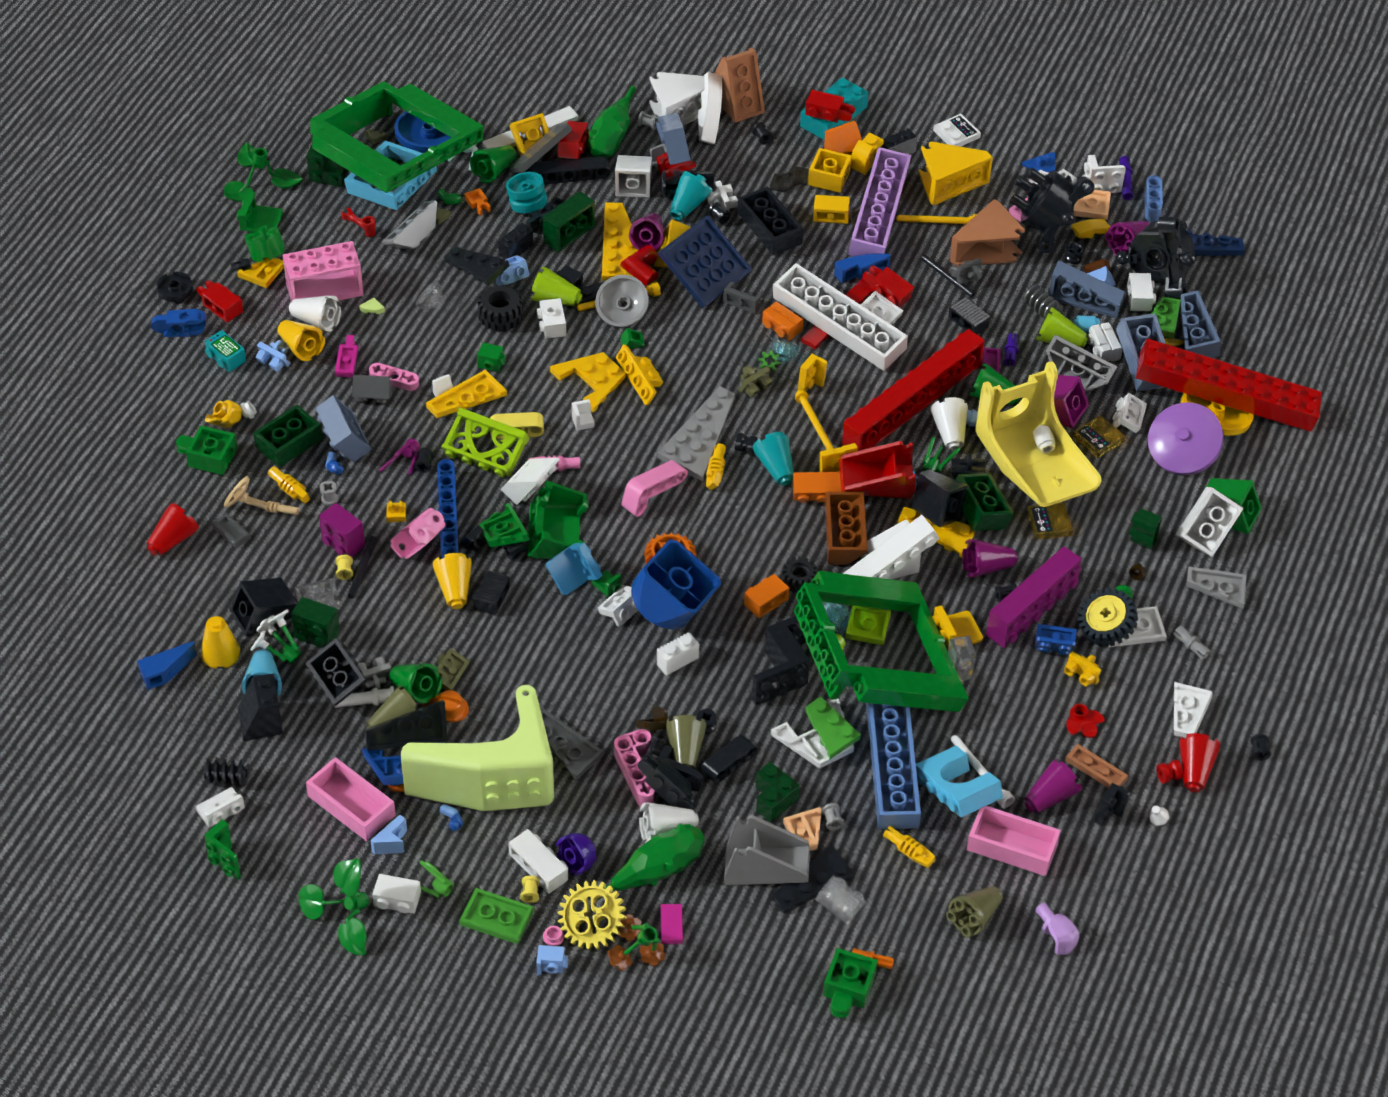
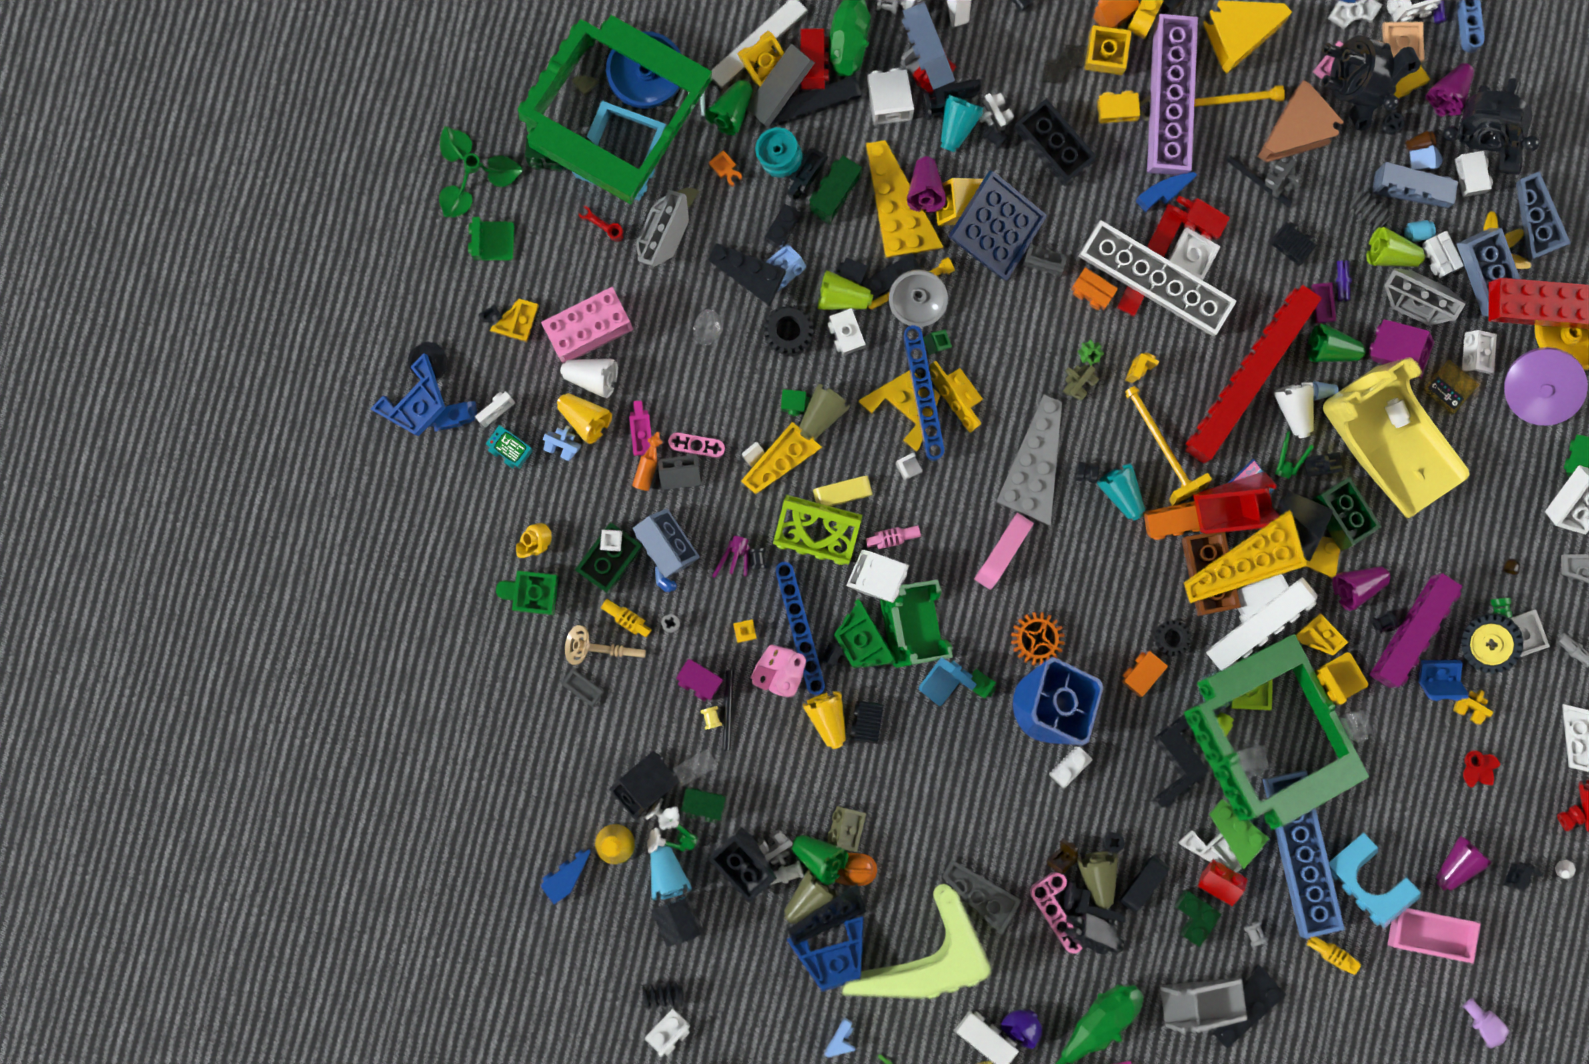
camera: 10 degrees left, 35 degrees up
(154, 306) = (419, 406): none -> blue wing
(171, 530) = (524, 708): red cone -> none
(220, 300) = (483, 374): red hinge -> none
(222, 317) = (500, 404): none -> white plate
(248, 410) = (556, 525): white plate -> none
(265, 243) = (511, 288): green brick -> none
(293, 415) = (611, 540): none -> white tile
(344, 378) = (647, 465): none -> orange wheel
(350, 799) = (792, 1008): bright pink piece -> none
(372, 306) = (648, 348): yellowish green tile -> none
(449, 199) = (694, 169): green arm -> none
(456, 820) = (897, 1005): arm -> none
(515, 361) = (822, 412): none -> olive cone
(609, 362) = (924, 383): none -> blue beam
(619, 606) = (999, 712): white bracket -> none
(638, 265) = (922, 238): red brick -> none
(663, 818) = (1099, 976): white cone -> none
(716, 467) = (1061, 510): yellow hinge -> none
(785, 349) = (1101, 326): clear light blue piece -> none
(805, 825) = (1231, 953): light nougat wing -> none
(807, 765) = (1222, 882): none -> red brick
(841, 899) = (1282, 1033): clear brick -> none
(888, 502) = (1259, 557): none -> yellow wing
(944, 593) = (1321, 636): none -> yellow wing
(974, 909) = (1408, 1019): olive cone -> none
(1008, 799) = (1413, 876): white piece -> none
(1049, 521) = (1420, 522): clear yellow plate -> none
(1095, 767) = (1499, 825): nougat plate -> none
(1145, 528) = (1517, 518): dark green brick -> none
(1167, 315) = (1501, 205): bright green wing -> none
(1212, 246) = (1536, 80): dark blue wing -> none

